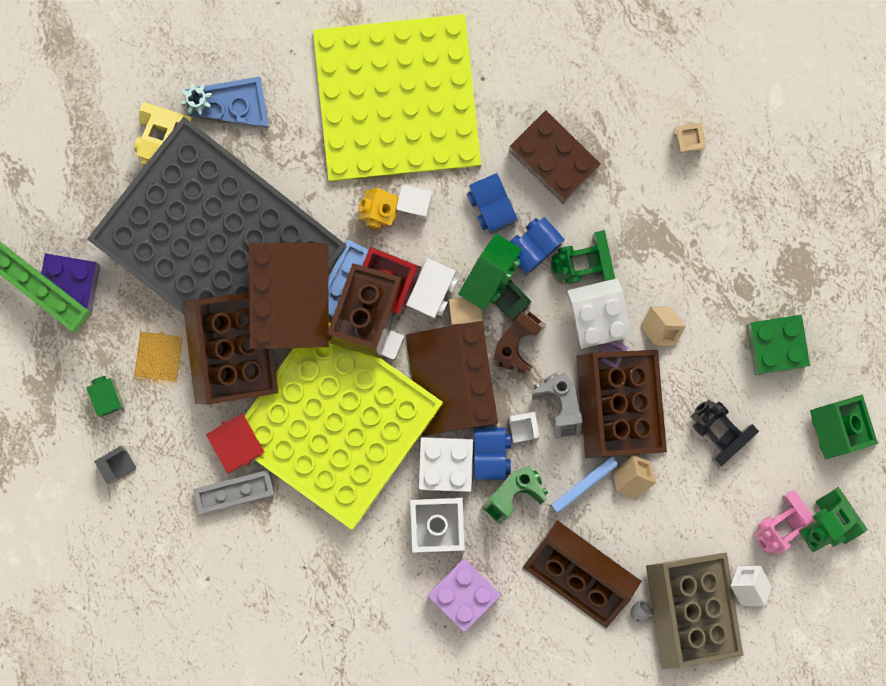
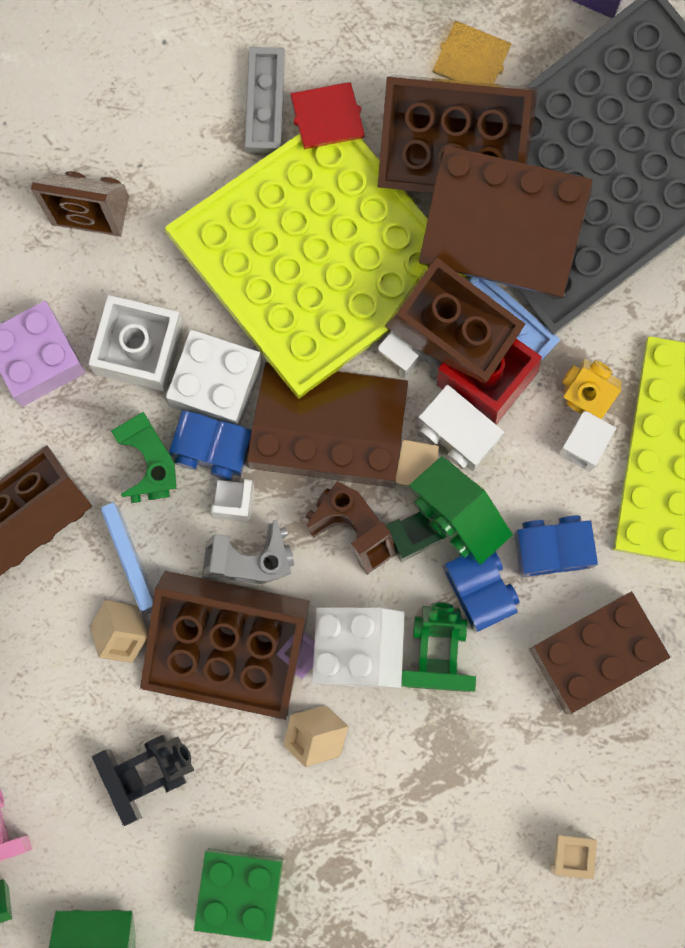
camera: 110 degrees right, 5 degrees down
(346, 593) = (83, 202): none -> reddish brown slope

